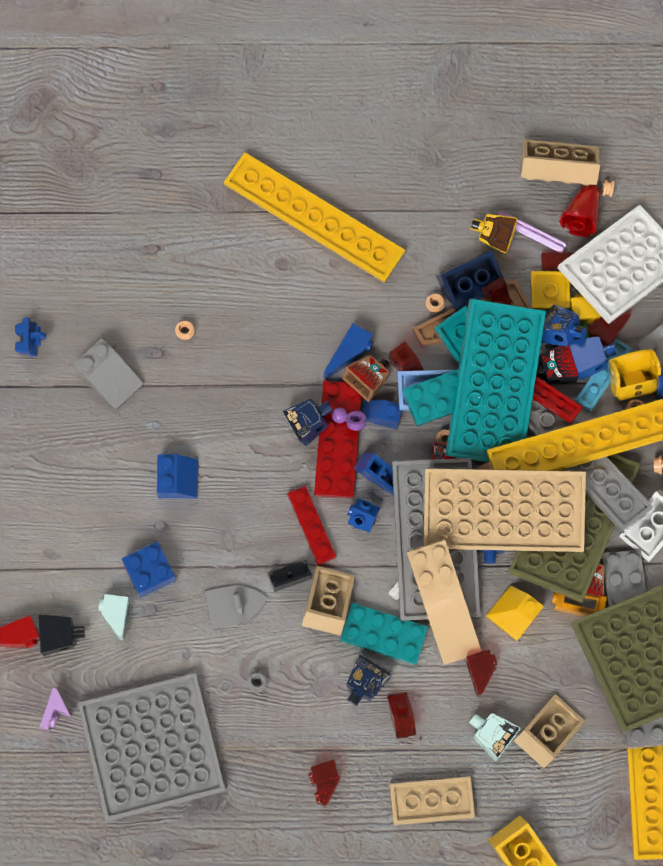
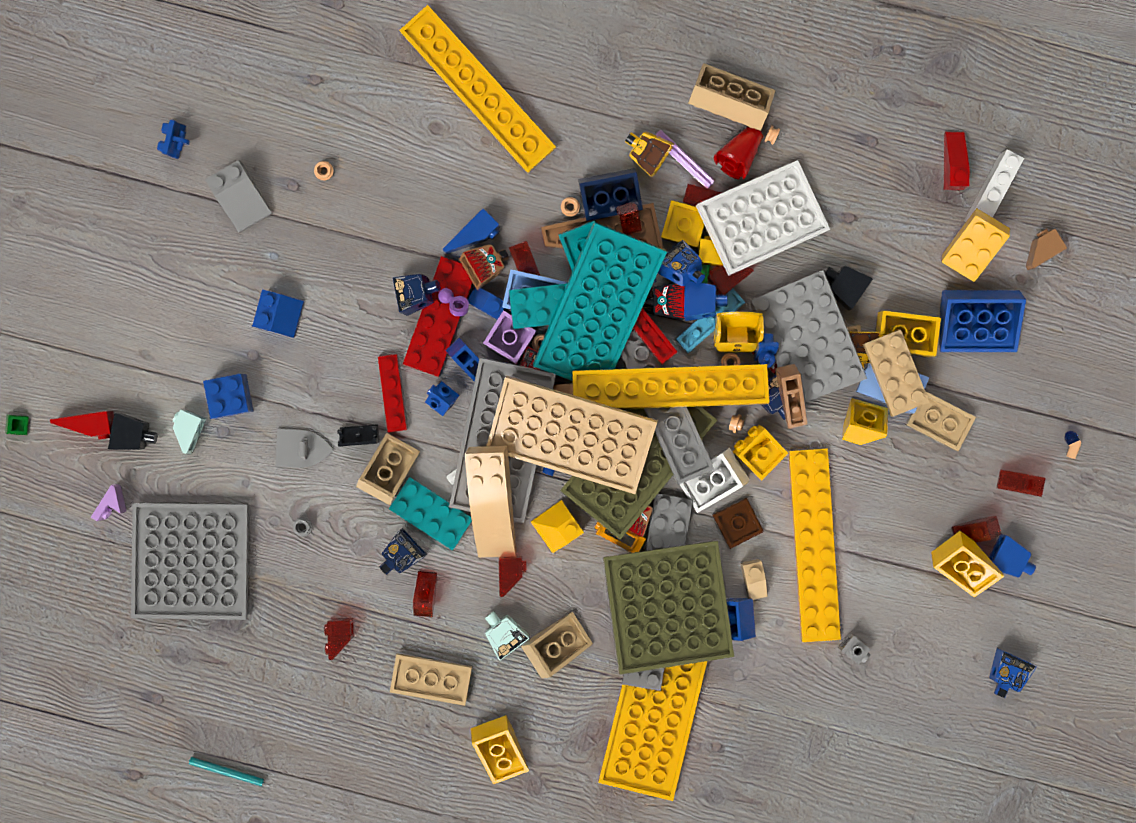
camera: 15 degrees right, 15 degrees up
(412, 441) = (509, 341): none -> lavender brick

